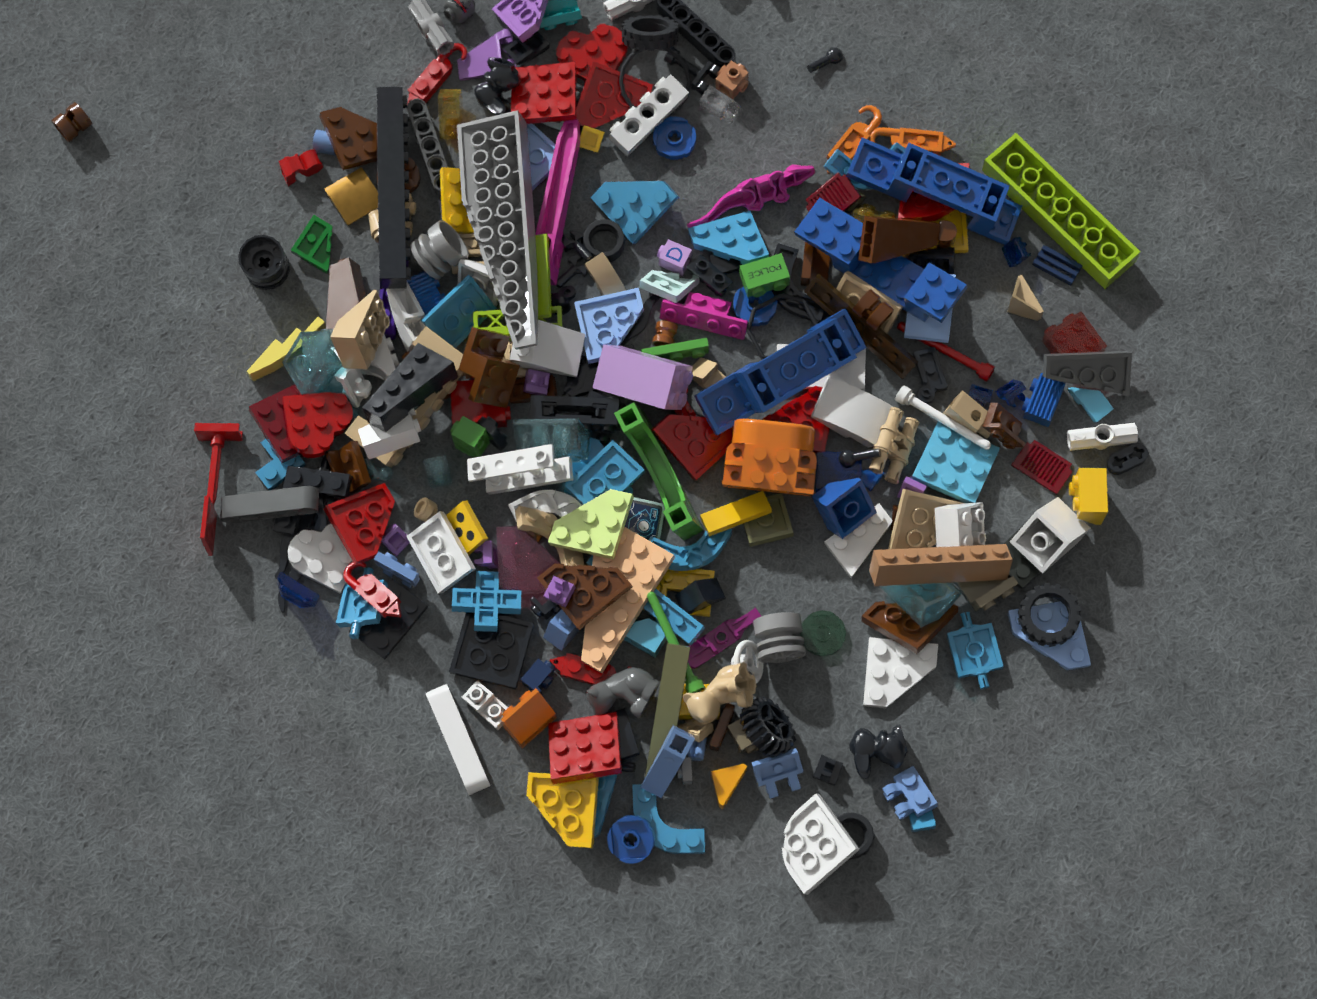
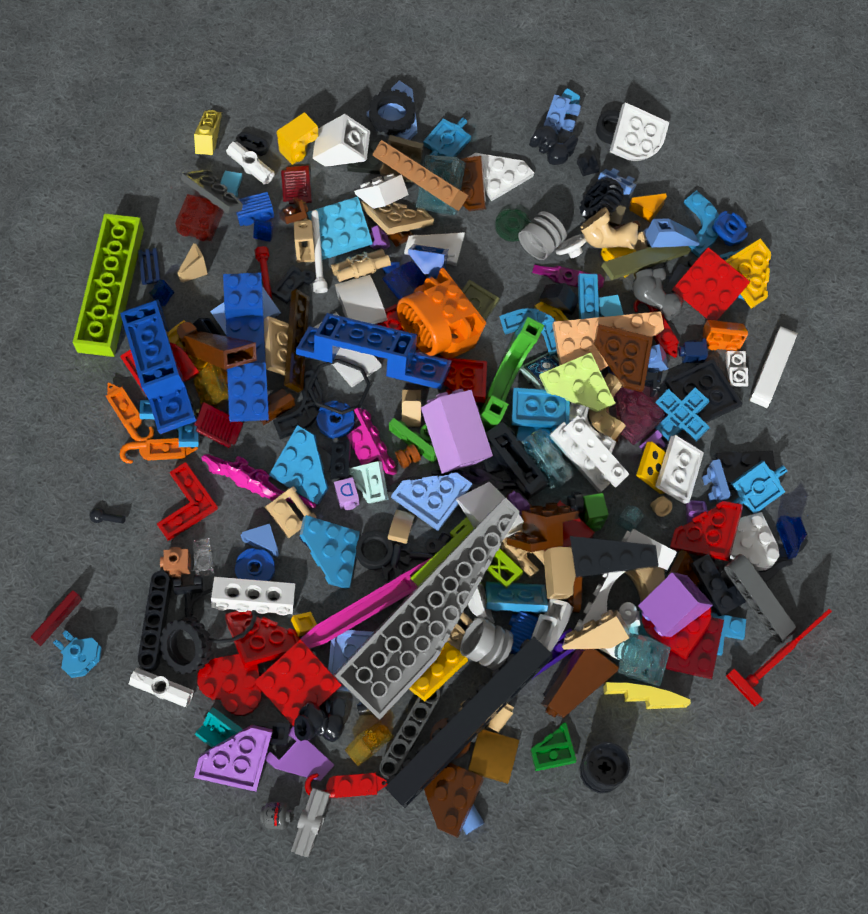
camera: 140 degrees left, 5 degrees down
(306, 164) = (506, 816): red leg -> none
(327, 421) = (674, 604): none -> medium lavender slope
(373, 592) = (749, 478): plate -> none
(559, 591) = (641, 364): medium lavender tile -> none
(692, 161) = (262, 539): none -> medium blue slope
(693, 684) = (616, 252): bright green piece -> none
(695, 194) = (283, 513): none -> tan plate
(736, 513) = (496, 321): yellow tile -> none
(764, 275) = (313, 419): bright green brick -> none
(782, 140) = (198, 508): none -> red plate
(848, 458) = (394, 280): black bar -> none
(873, 310) = (283, 329): reddish brown wheel -> none
(980, 393) = (281, 245): clear blue tile -> none
(1174, 424) = (207, 132): none -> light yellow slope

